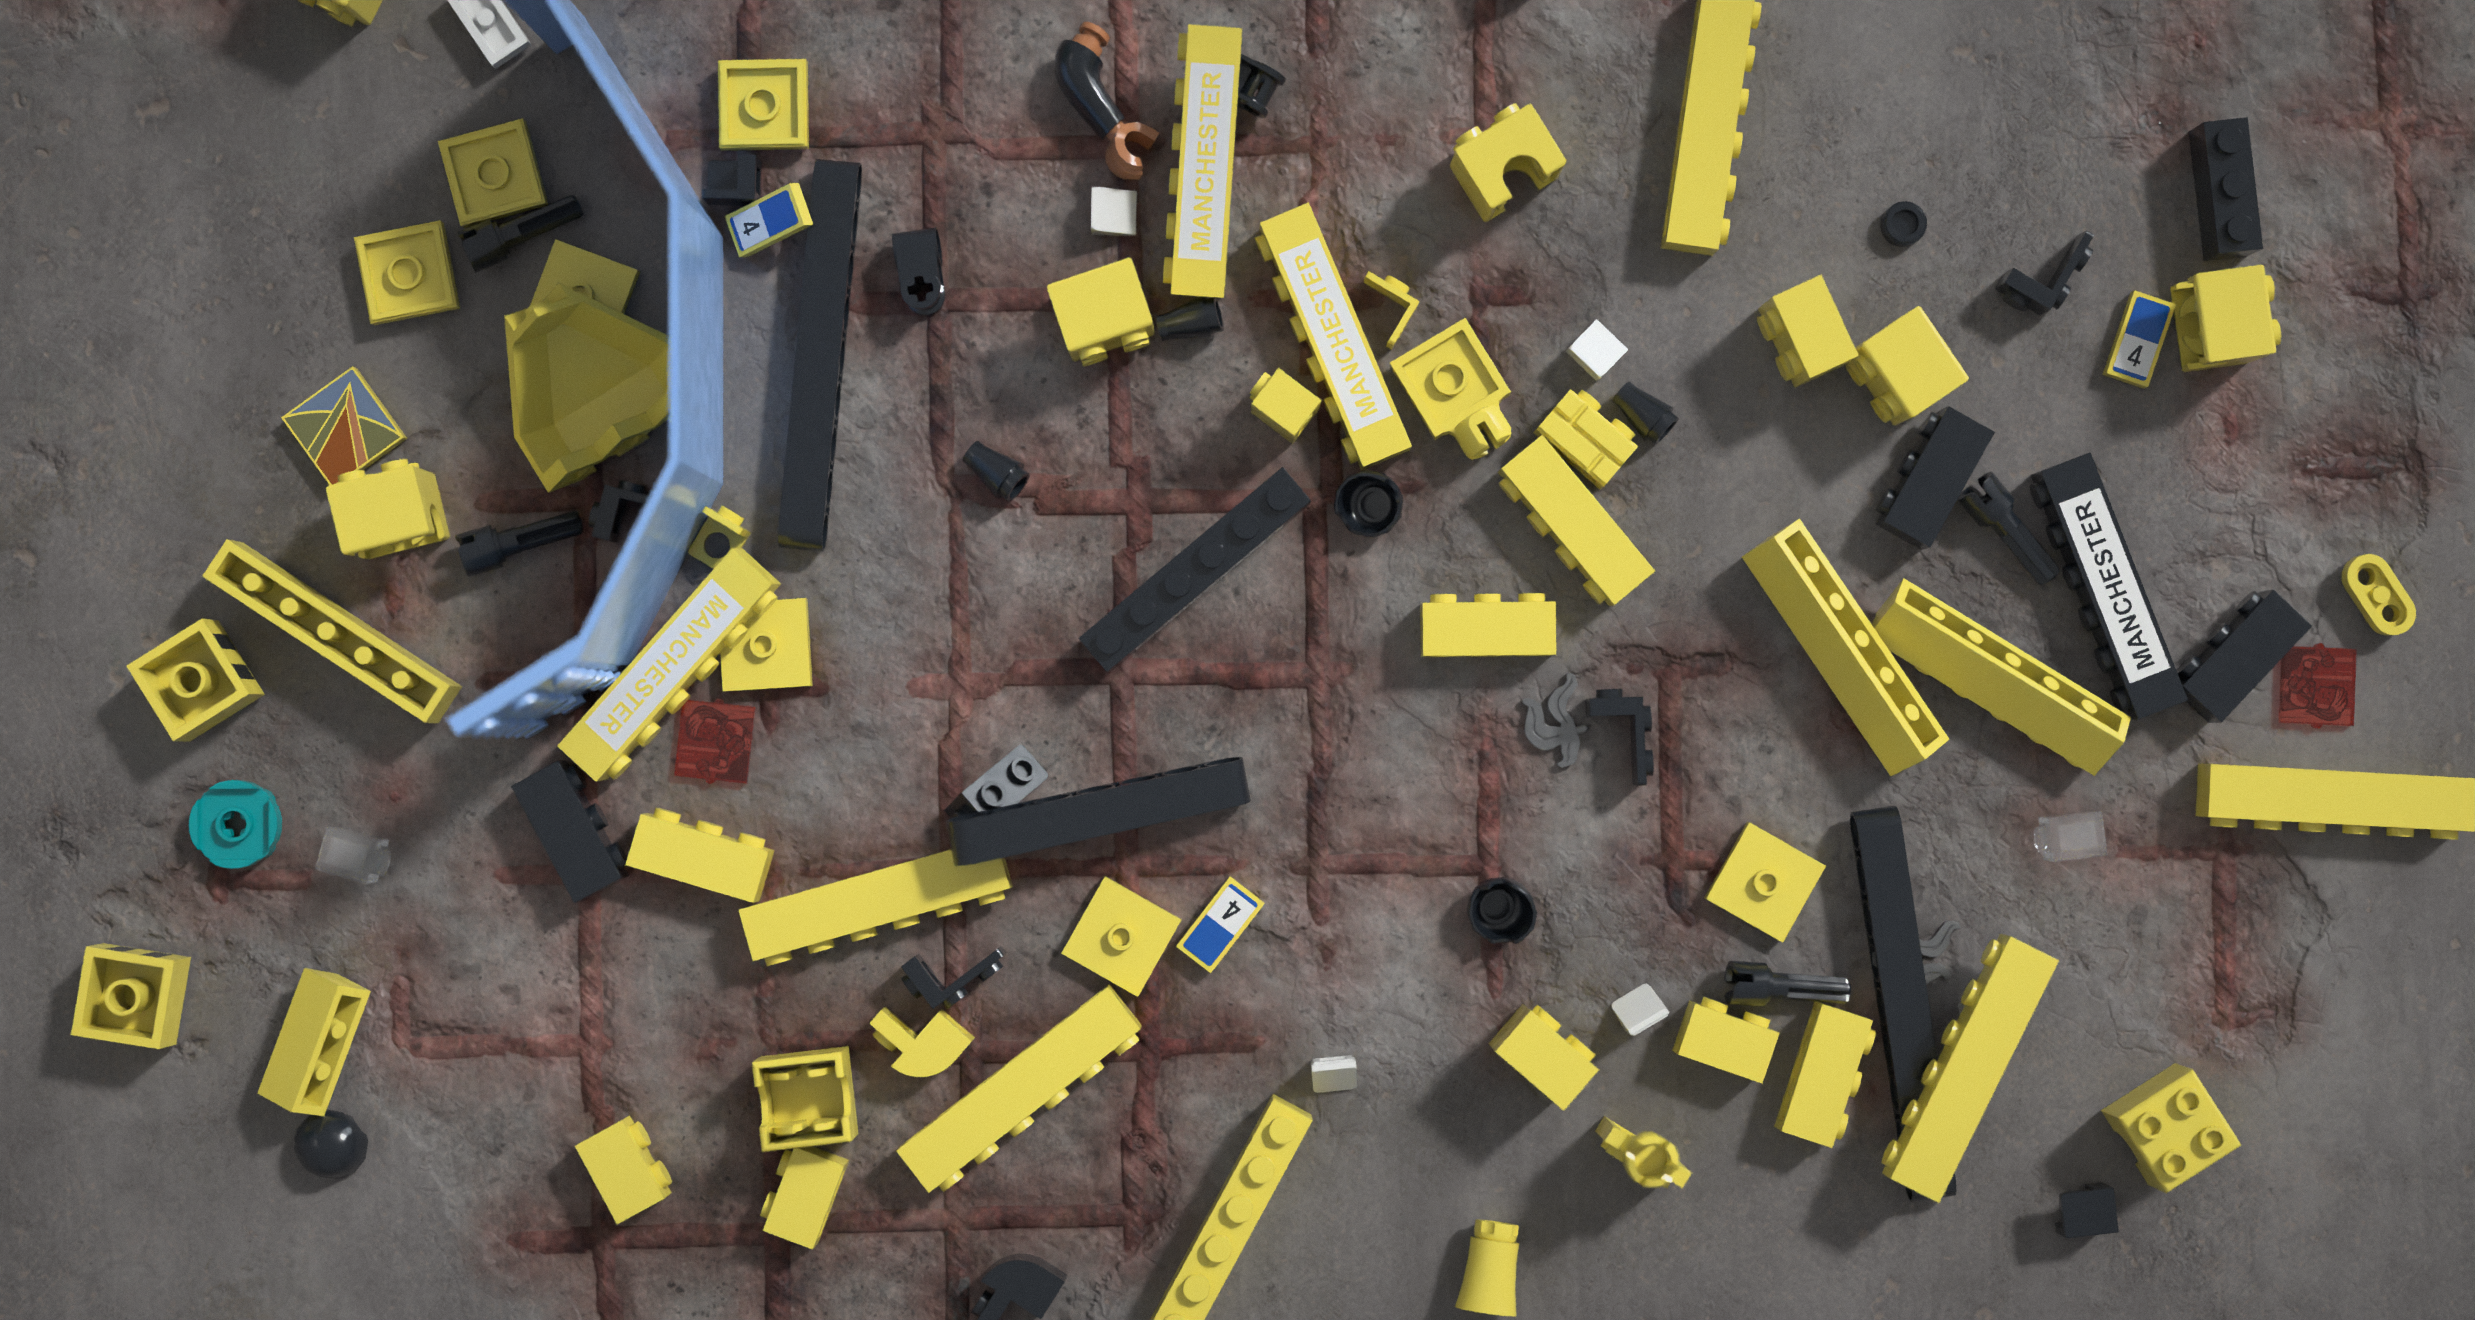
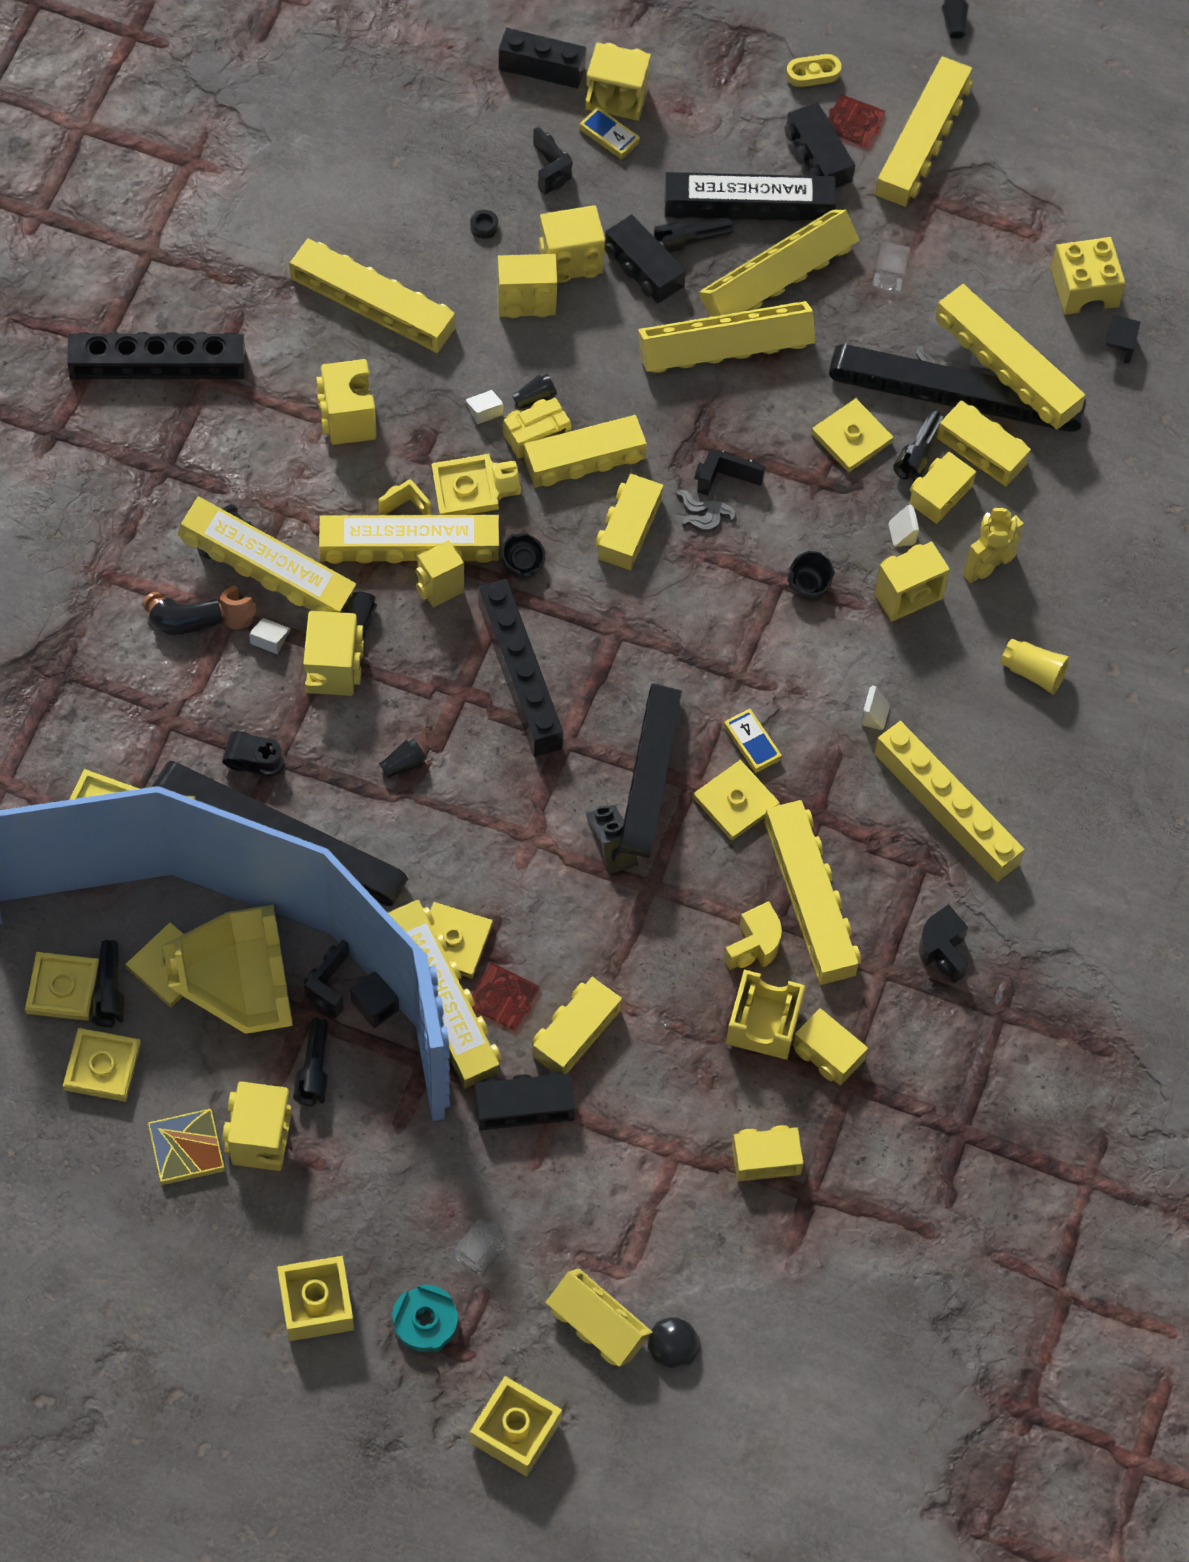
camera: 70 degrees left, 25 degrees down
(332, 631) = (322, 1196): light yellow brick -> none
(867, 901) = (650, 934): light yellow brick -> none
(923, 982) = (719, 921): black bracket -> none

